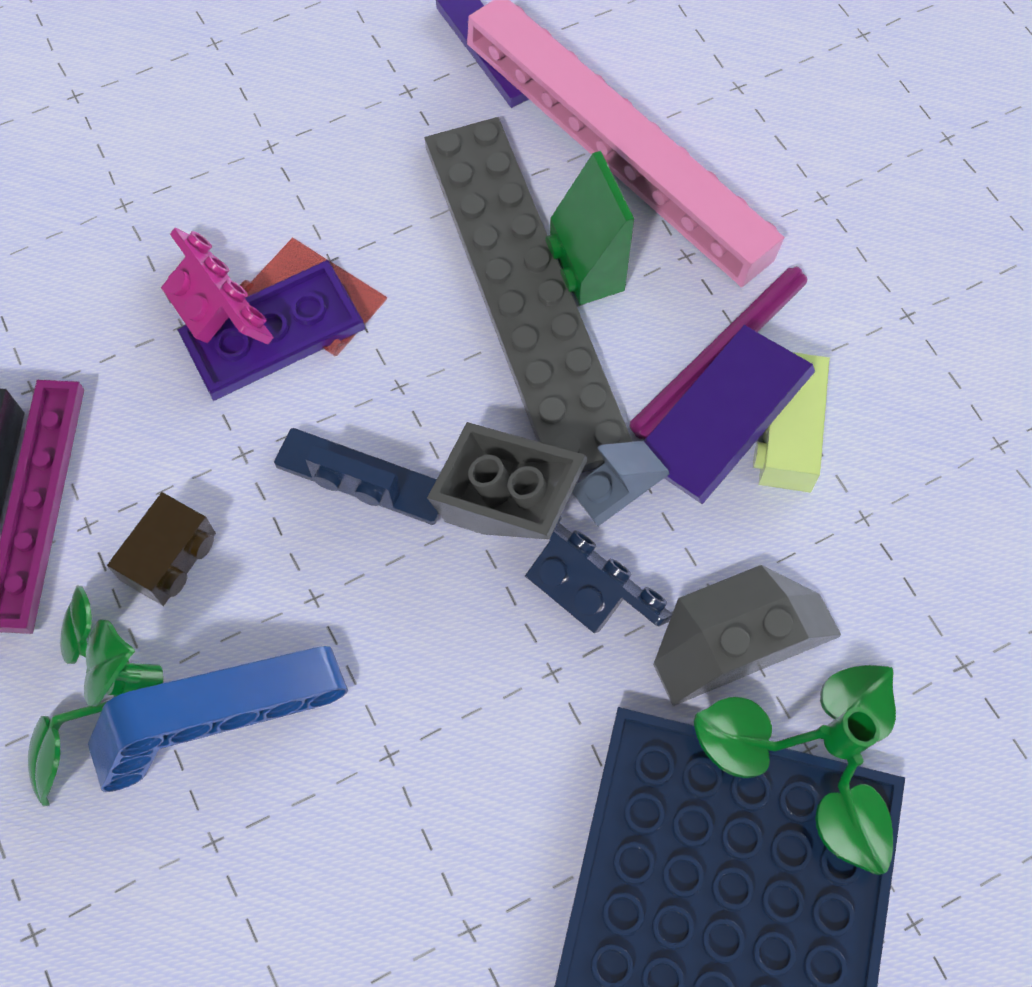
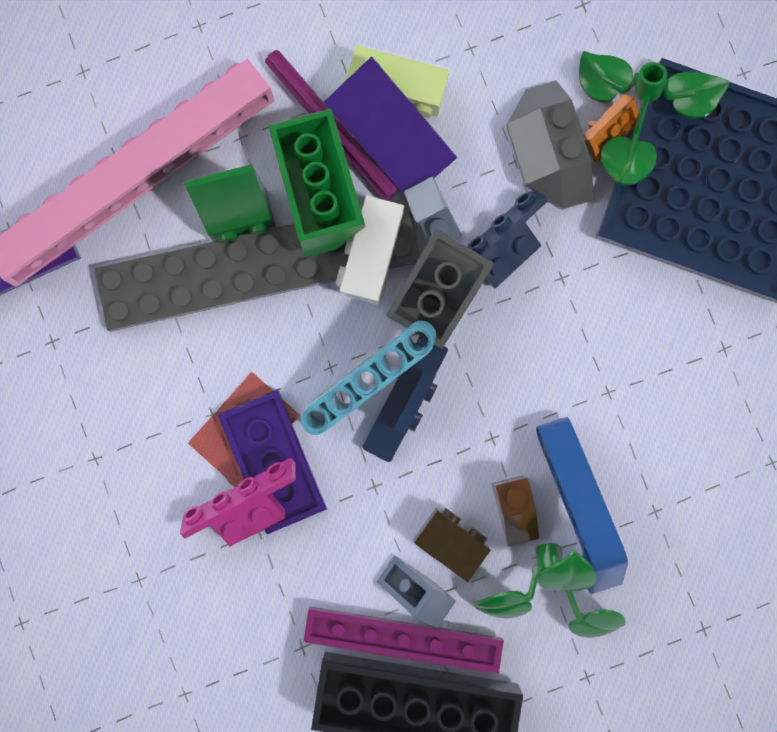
camera: 80 degrees left, 20 degrees up
(95, 511) = (416, 592): none -> sand blue slope
(211, 630) = (516, 510): none -> reddish brown slope
(384, 413) = (357, 389): none -> medium azure beam
(552, 400) = (371, 251): none -> white brick
(631, 318) = (317, 182): none -> green slope
(786, 709) = (615, 122): none -> orange plate

